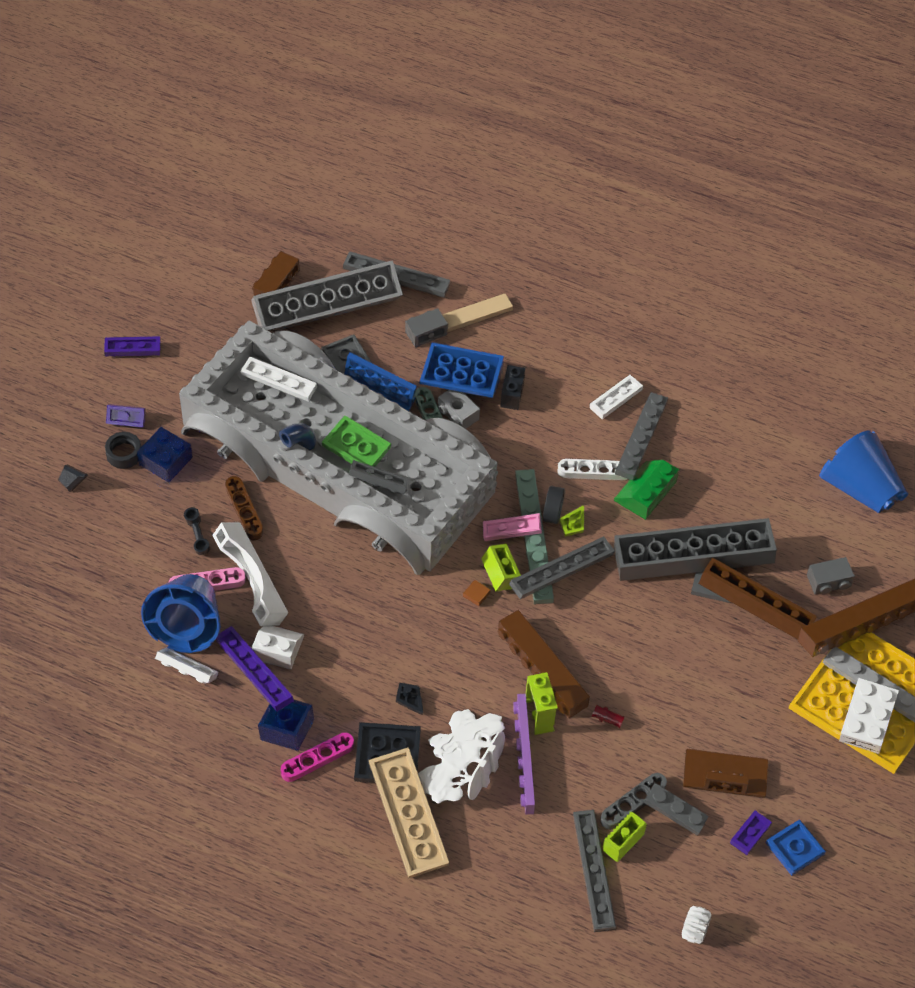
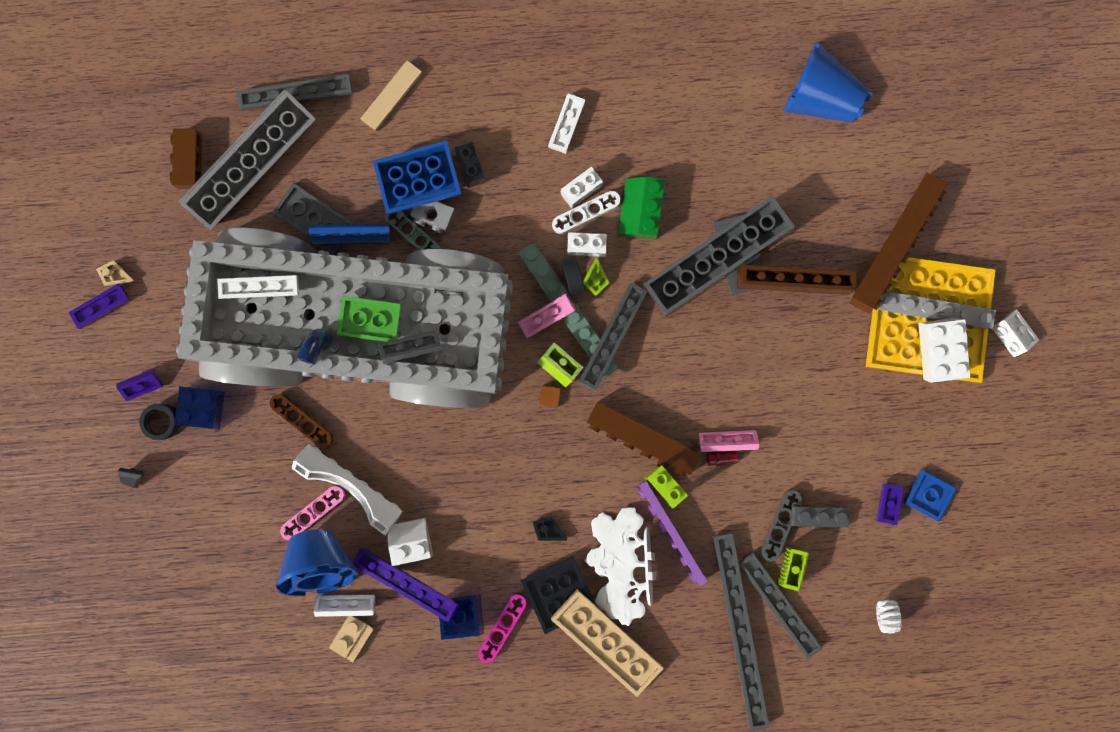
camera: 25 degrees left, 30 degrees up
(161, 329) = (113, 274): none -> tan piece
(174, 697) = (351, 638): none -> tan plate
(193, 519) = (264, 456): black bar -> none
(426, 327) = (355, 139): dark grey brick -> none
(542, 873) = (741, 632): none -> dark grey plate
(581, 490) = (586, 244): none -> white brick
(601, 446) = (581, 187): none -> white brick
(622, 704) = (728, 441): none -> bright pink plate
(641, 436) = (611, 155): dark grey plate -> none
(725, 773) = (843, 459): reddish brown bracket -> none
(830, 576) = (843, 215): dark grey brick -> none

